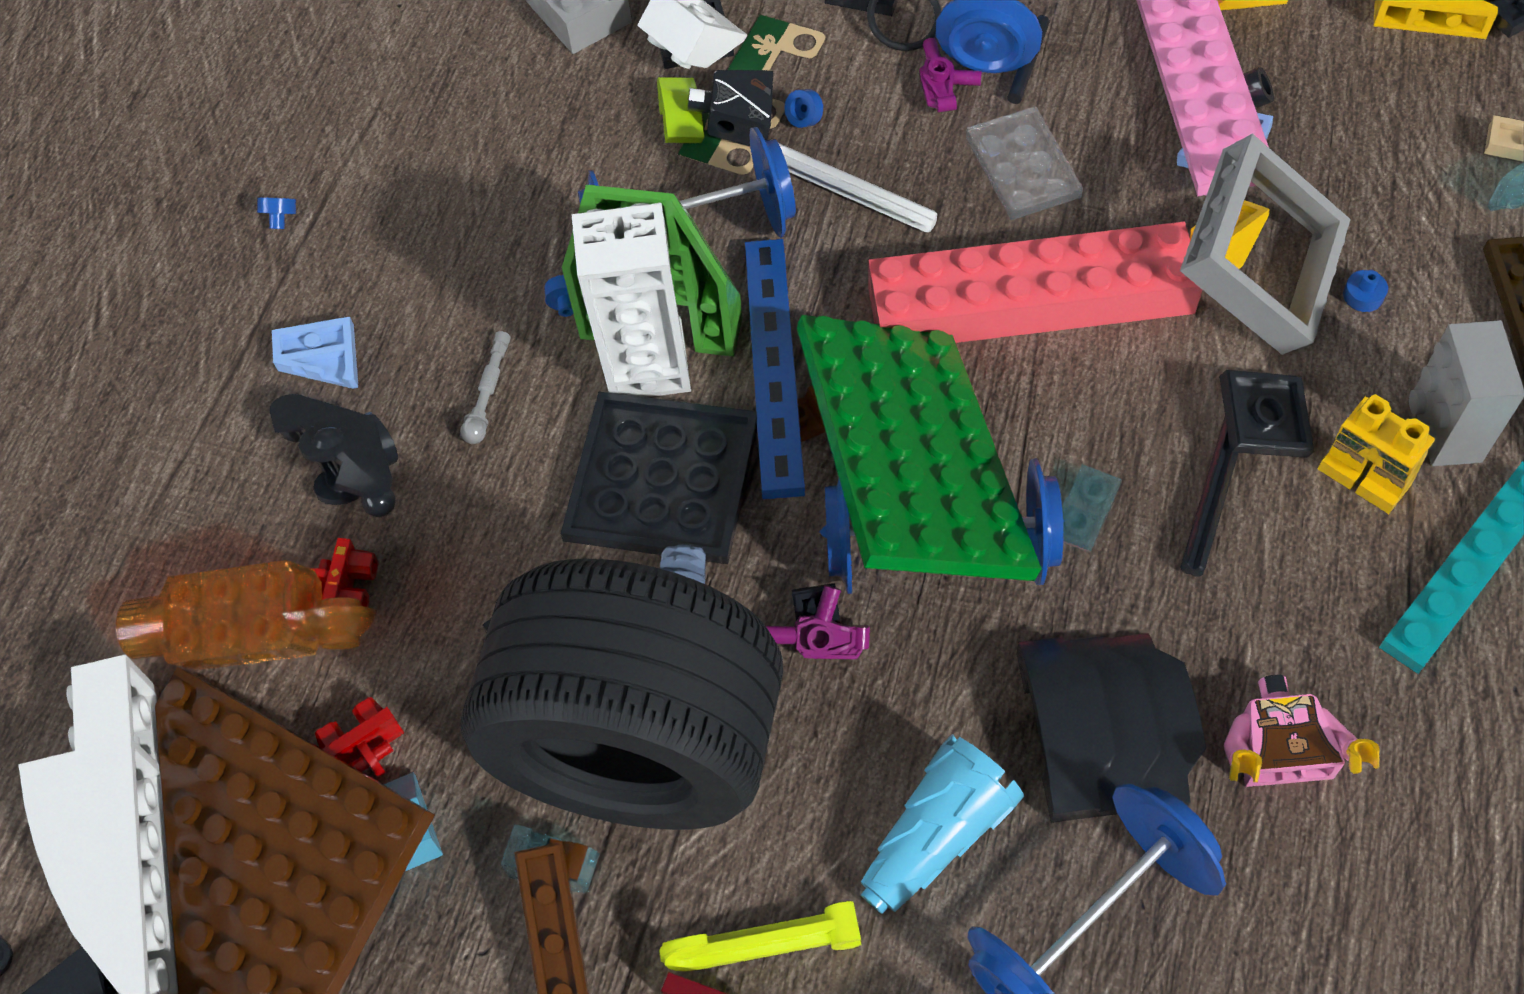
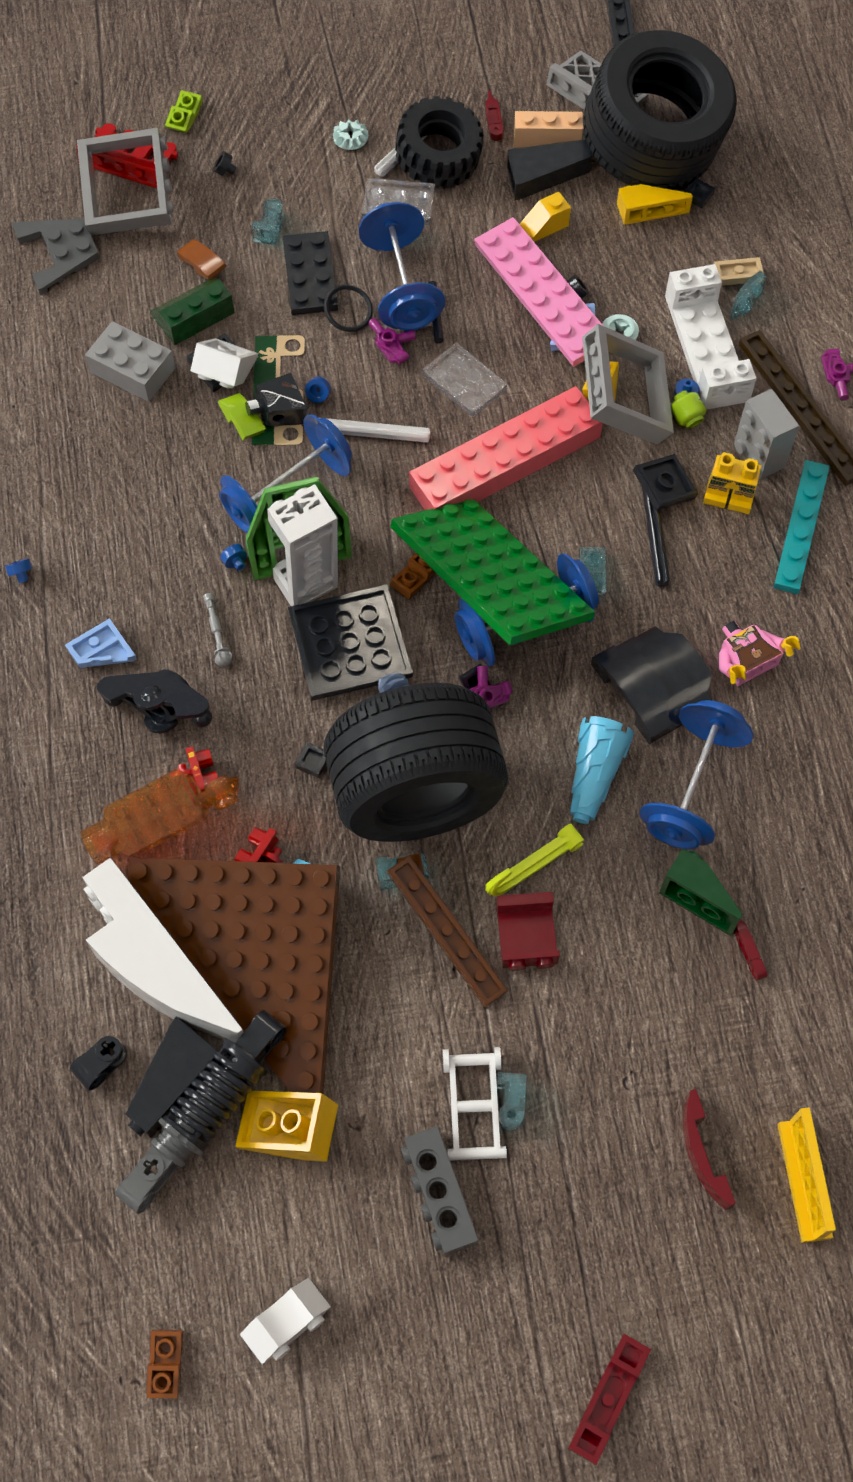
camera: 30 degrees left, 5 degrees up
(774, 371) = (385, 556): blue tile -> none
(1306, 160) = (622, 323): none -> light aqua gear
(1354, 317) = (688, 409): none -> lime head
(1433, 221) = (705, 338): none -> white plate

